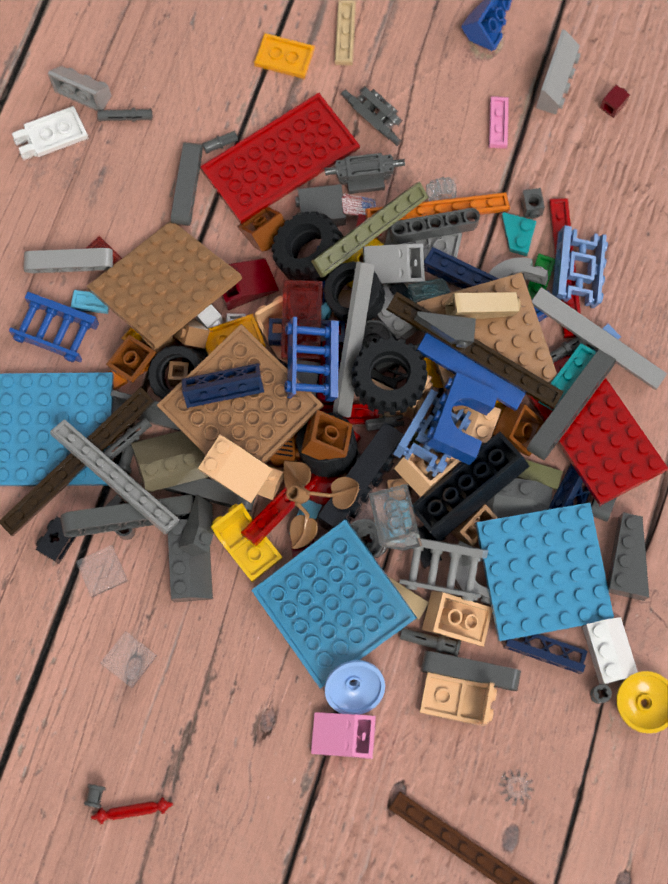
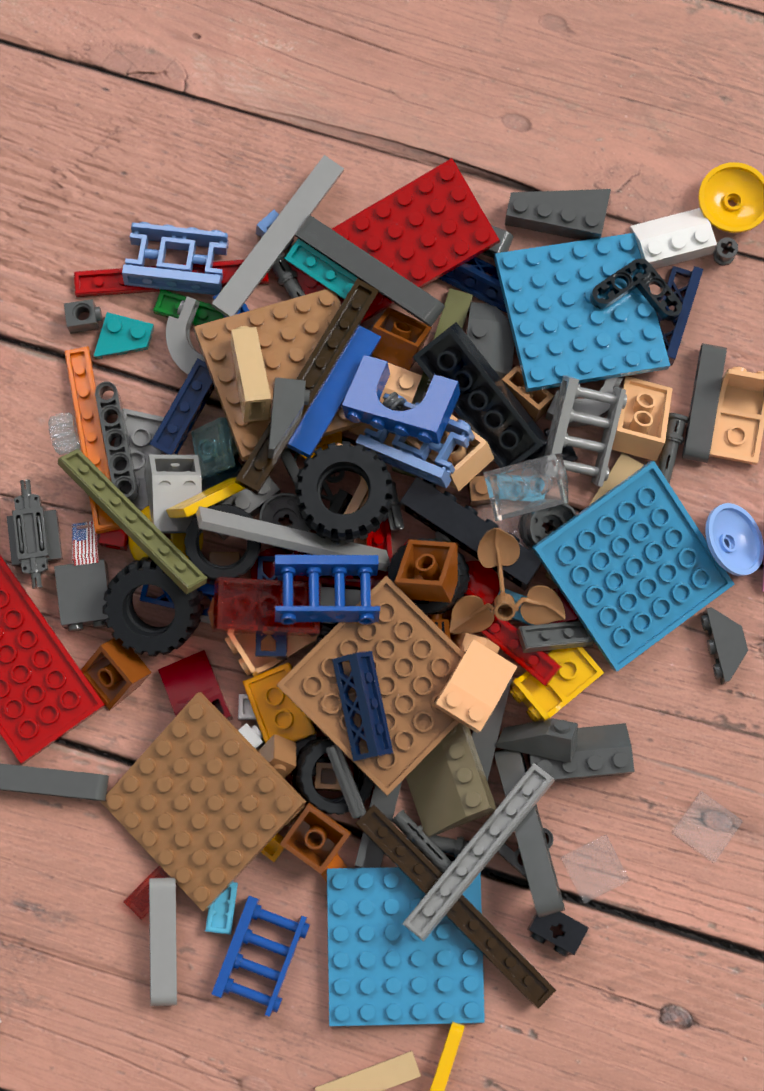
camera: 90 degrees left, 5 degrees up
(169, 378) = (346, 781): none -> dark grey axle
(271, 679) = (725, 643): none -> dark grey slope
(279, 539) = (554, 636): none -> dark grey tile
(384, 276) = (205, 499): none -> yellow tile
(460, 414) = (393, 402): none -> dark grey bush
(569, 620) = (641, 282): none -> black beam

